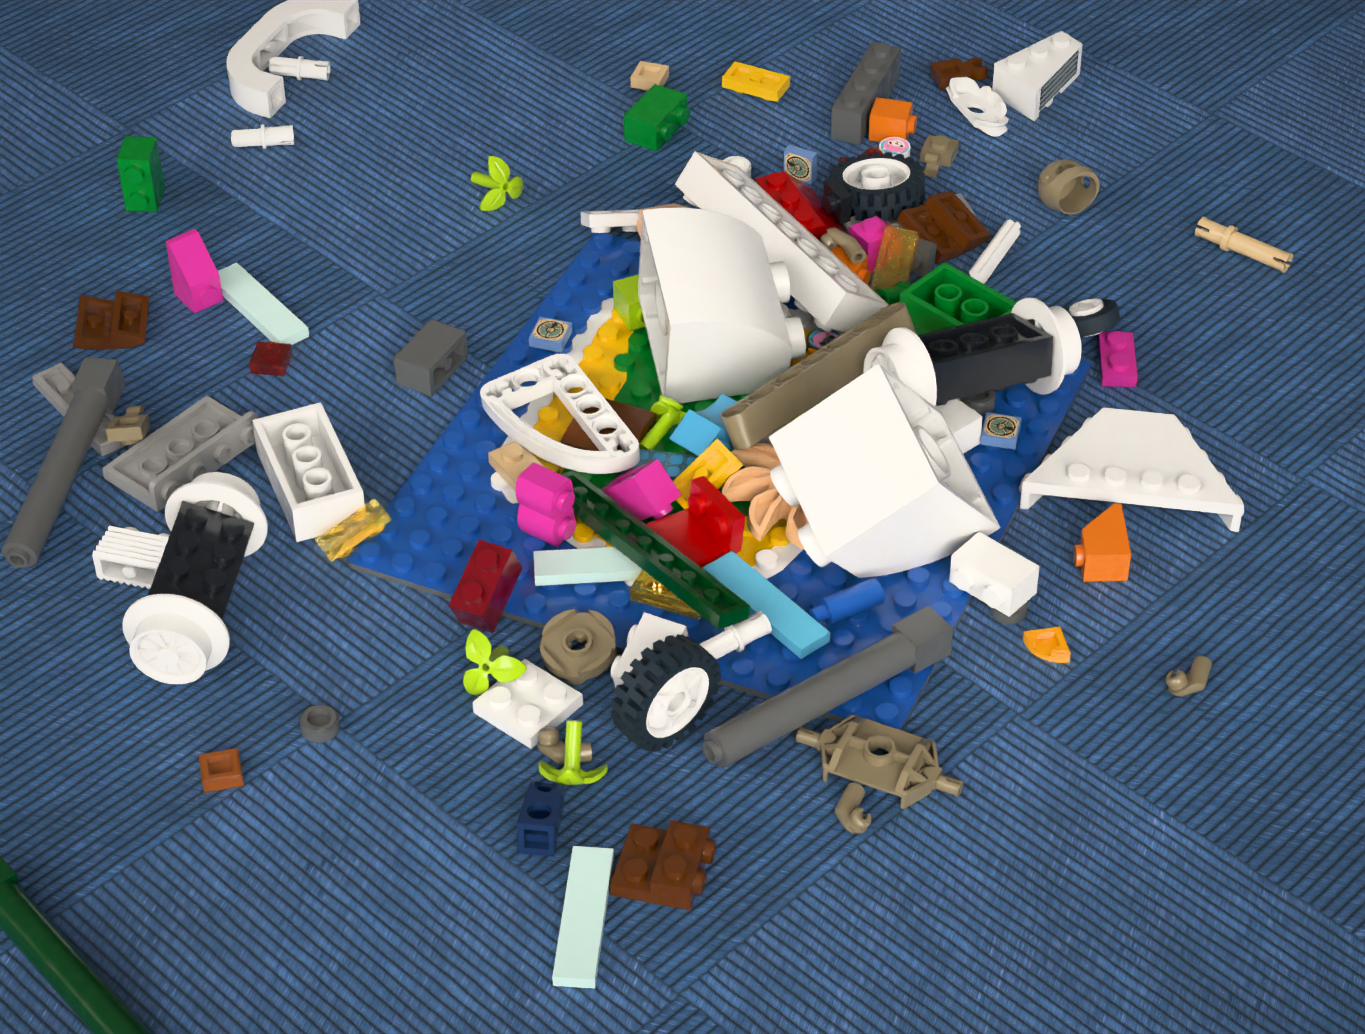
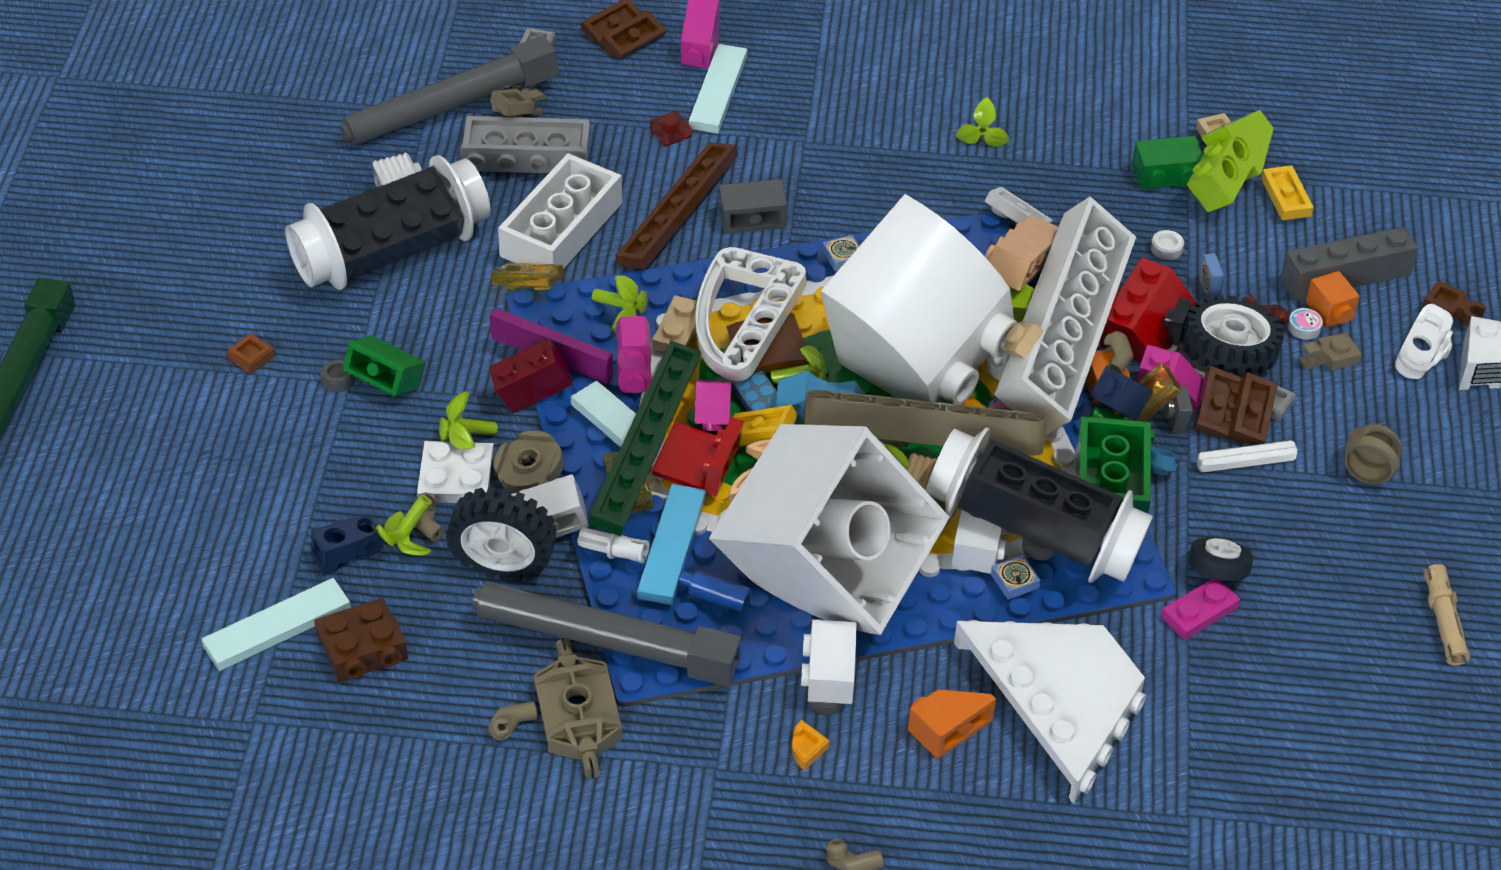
camera: 50 degrees right, 5 degrees up
(359, 677) = (383, 365): none -> green brick
(375, 400) = (676, 205): none -> reddish brown plate
(451, 558) = (579, 355): none -> magenta tile
(467, 483) = (626, 298): none -> lime plant
(702, 82) = (1231, 157): none -> lime brick
(802, 270) = (1022, 338): none -> tan plate
(884, 266) = (1121, 393): none -> dark blue brick

